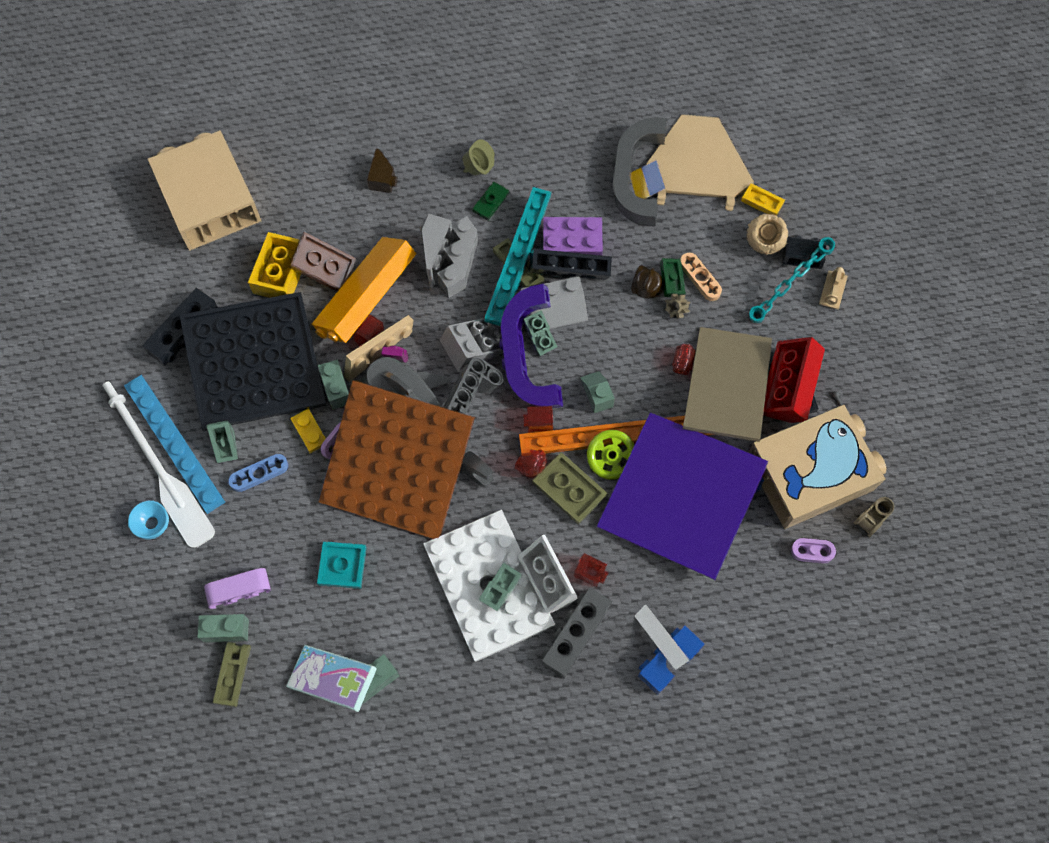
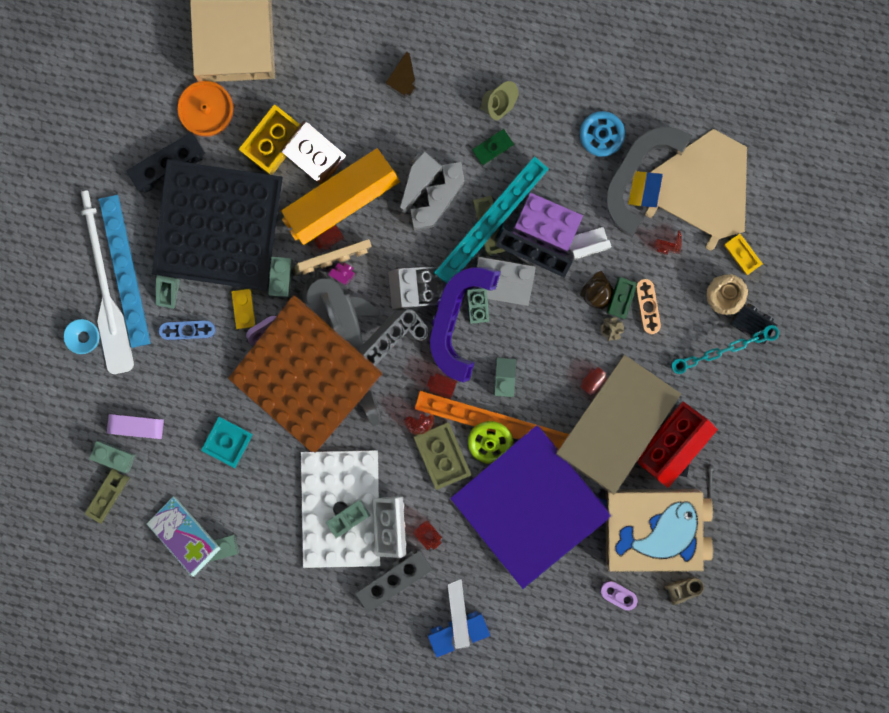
camera: 25 degrees right, 20 degrees up
(203, 267) = (205, 108): none -> orange piece
(588, 139) = (602, 150): none -> dark azure plate
(621, 244) = (589, 243): none -> white panel
(691, 218) = (664, 247): none -> clear red plate
(833, 288) = (761, 369): tan hinge -> none

